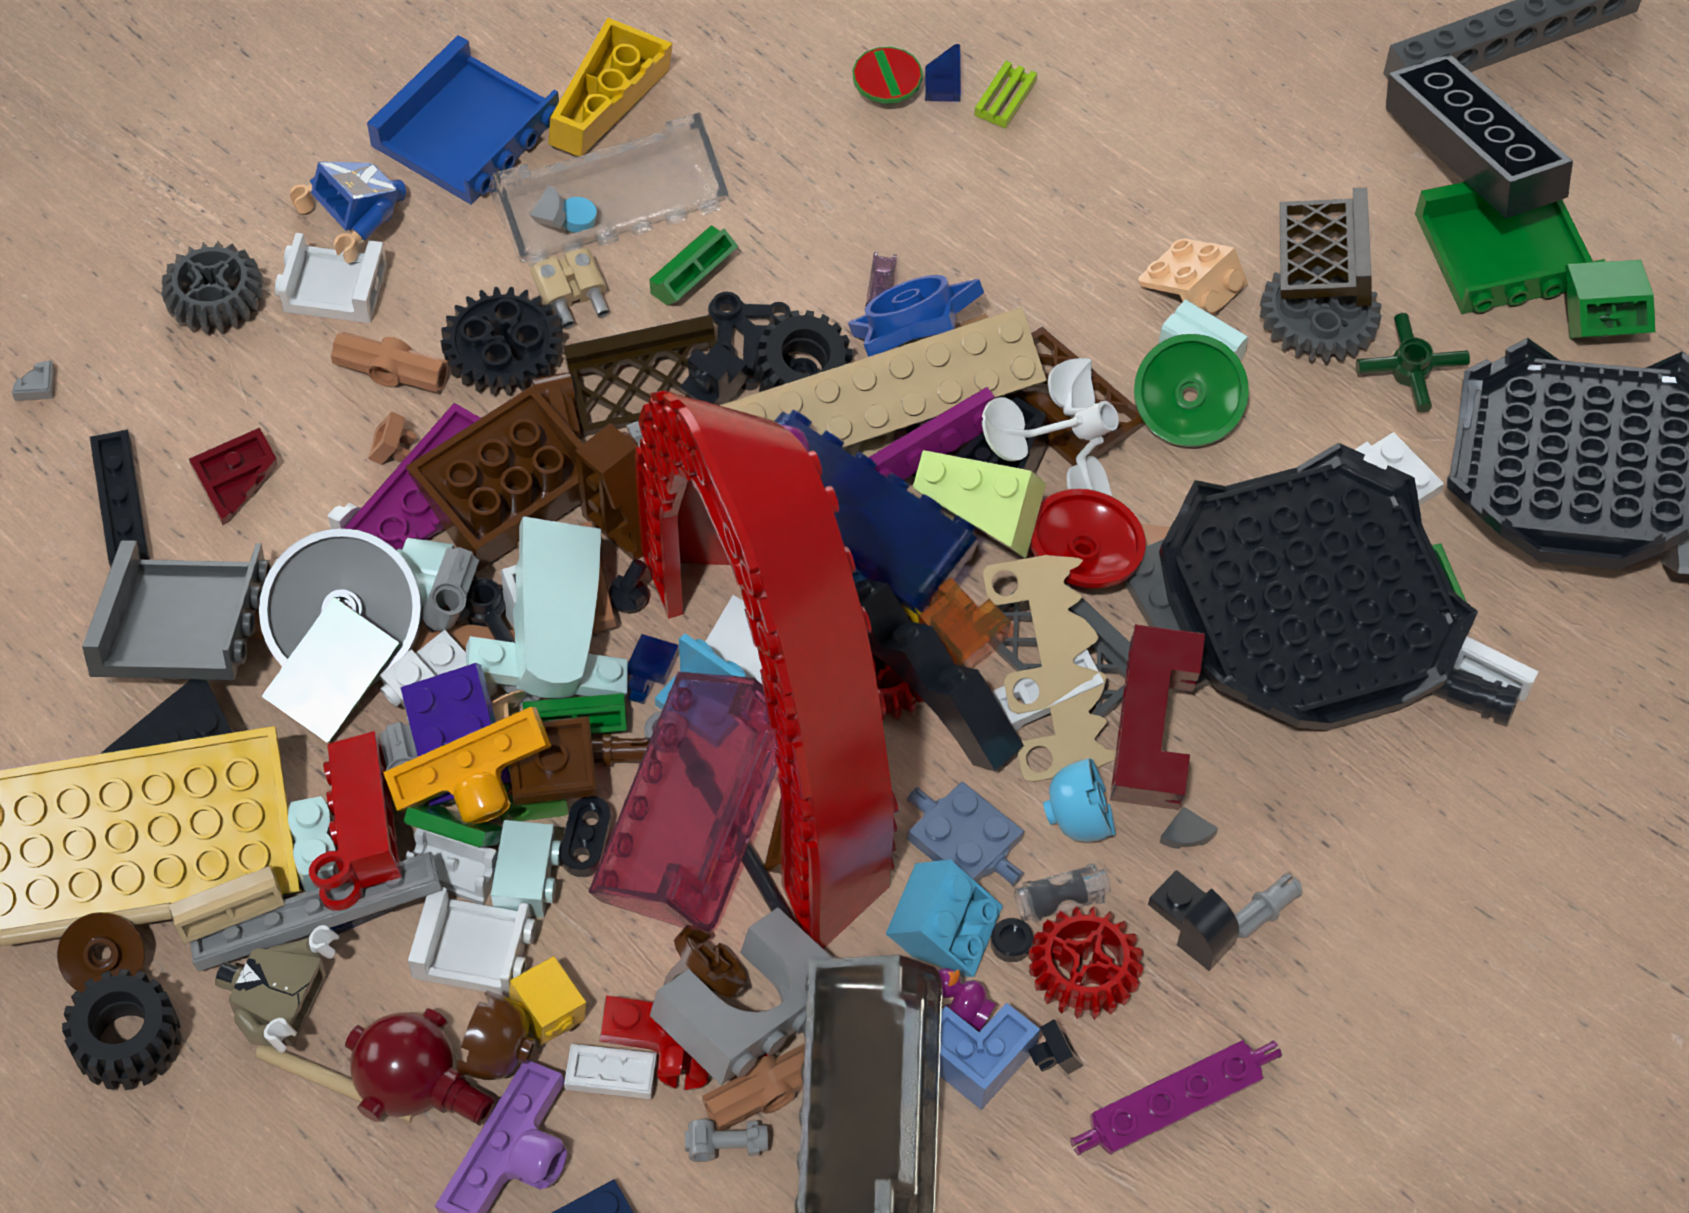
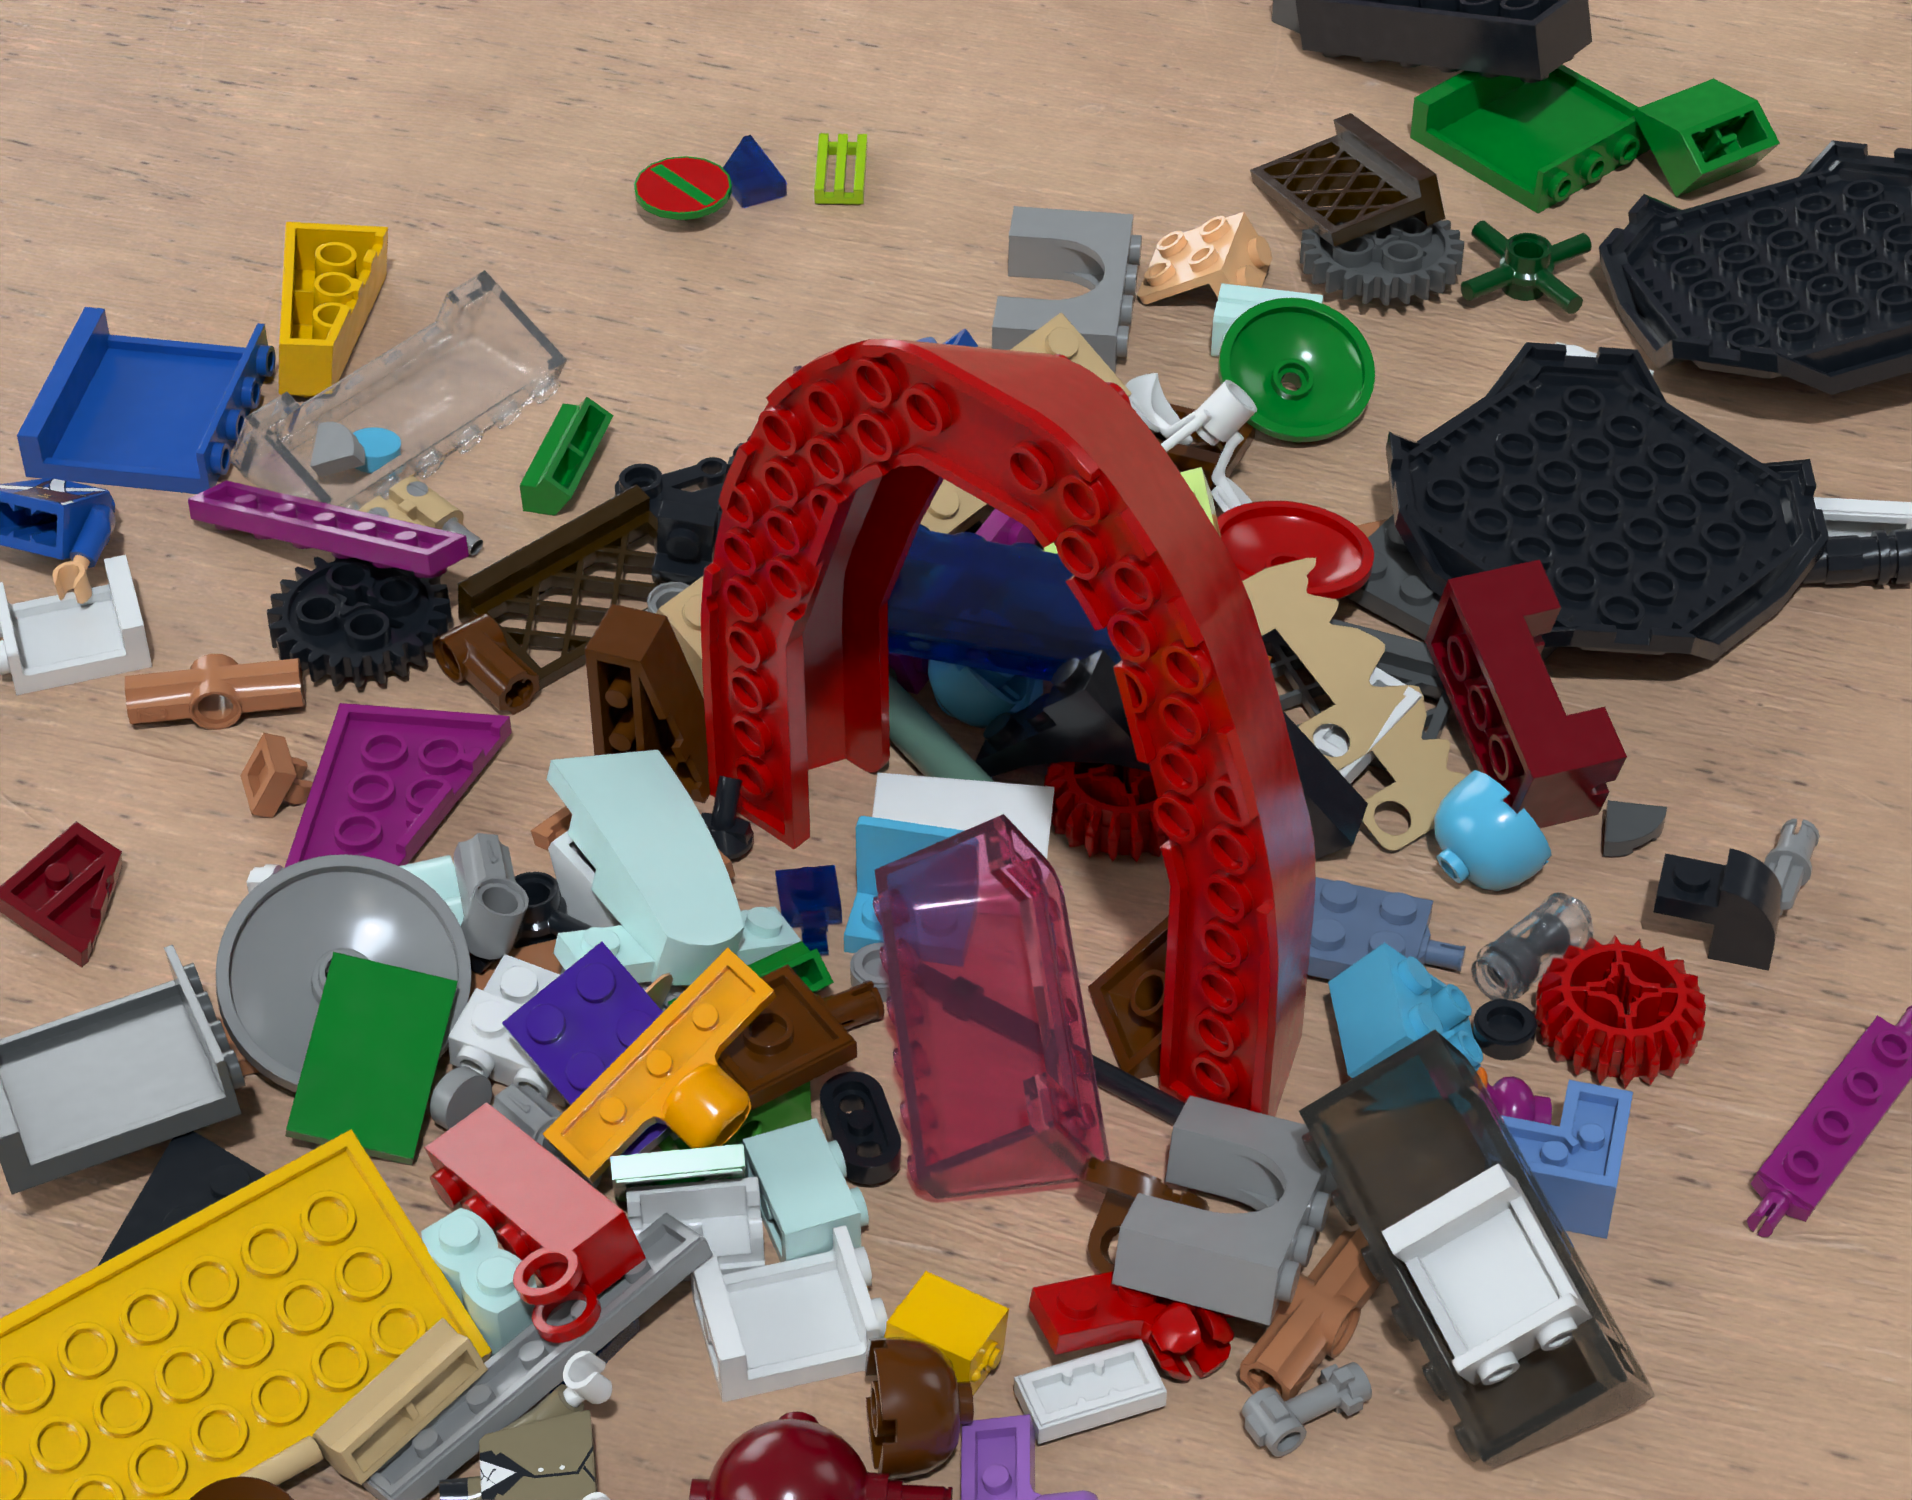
camera: 25 degrees left, 15 degrees down
(372, 715) = (459, 1095): none -> light grey tile
(497, 472) = (471, 745): reddish brown slope -> none
(510, 271) = (329, 528): none -> magenta plate
(864, 1116) = (1489, 1275): none -> white panel
(1055, 1049) = (1658, 1119): black tile -> none
(1083, 299) = (1080, 249): none -> light grey arch

